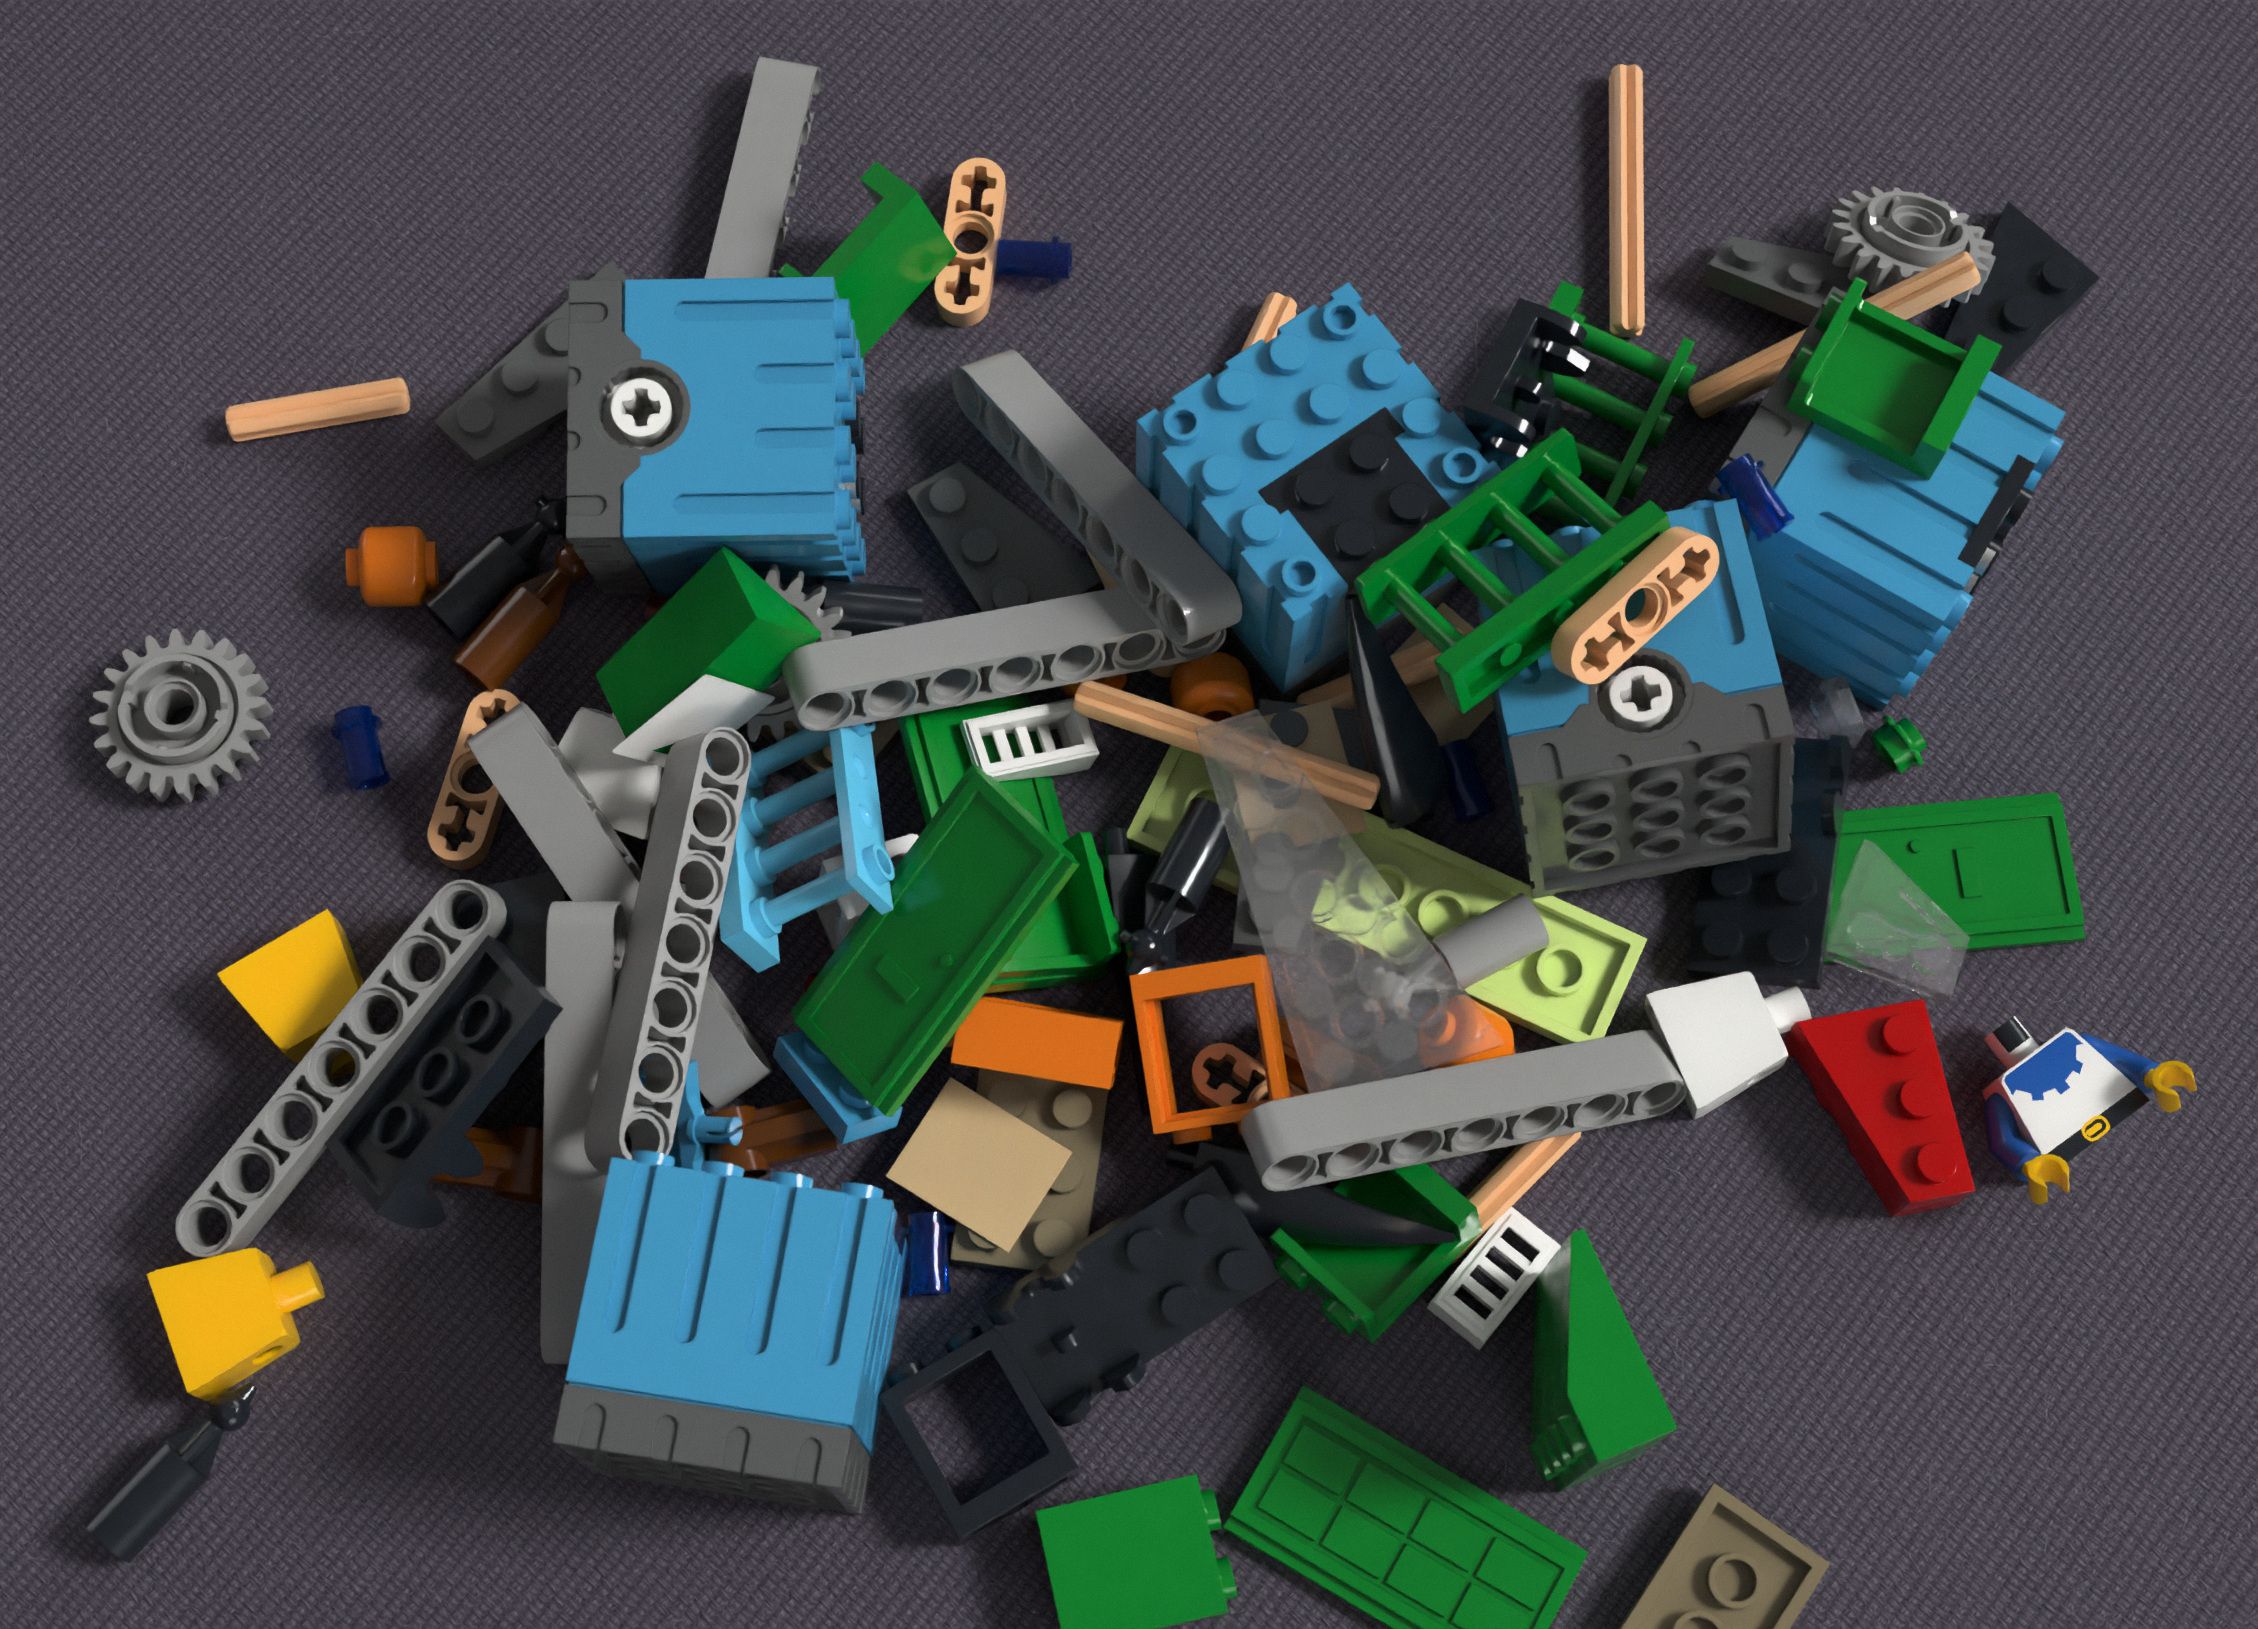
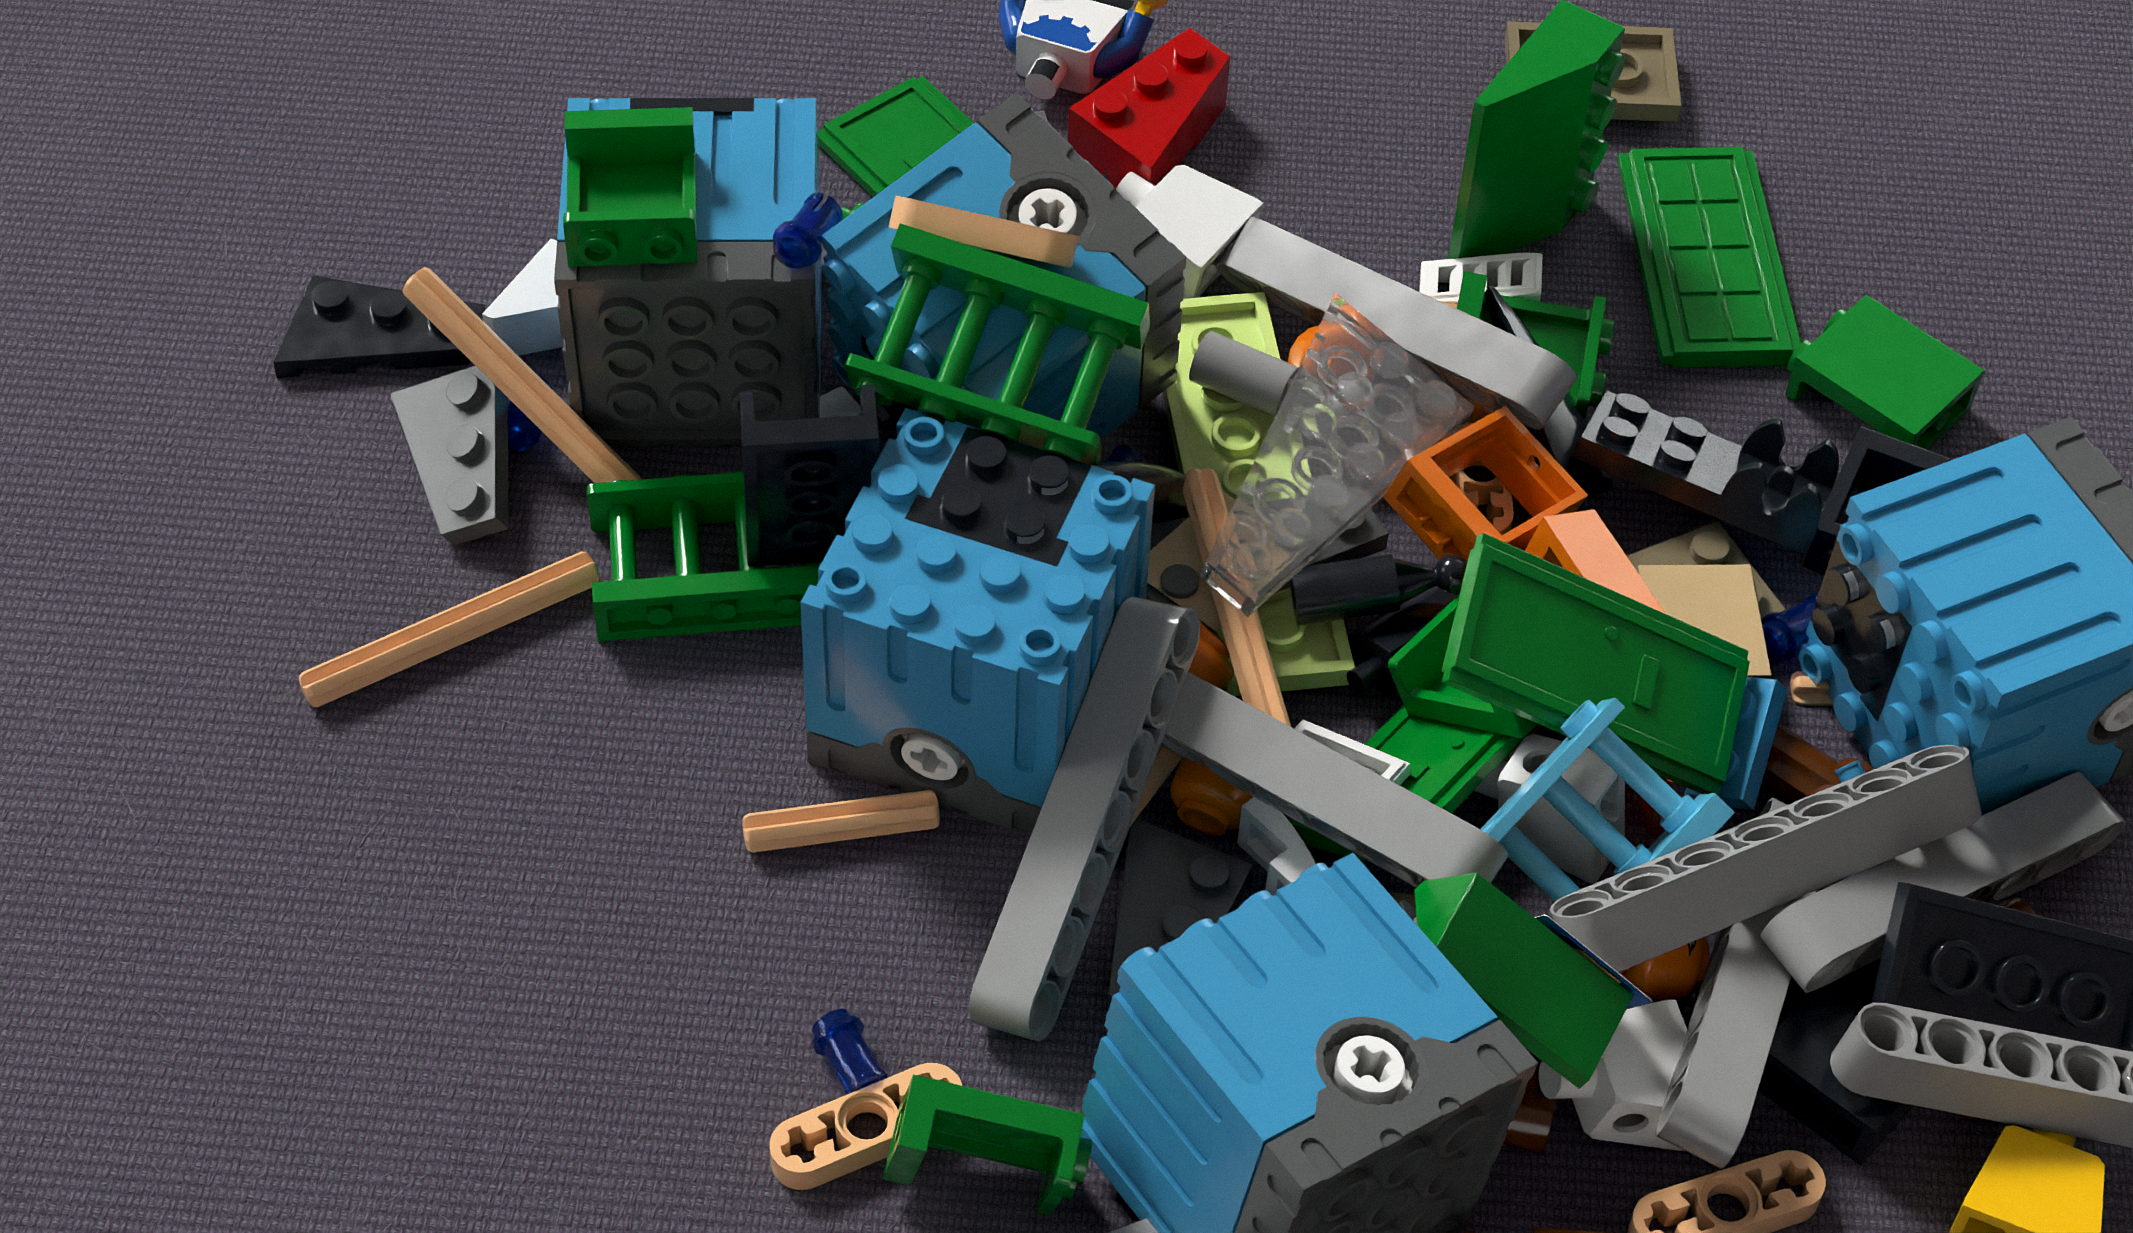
camera: 125 degrees left, 20 degrees down
(1901, 235) = (381, 388): light grey gear -> none

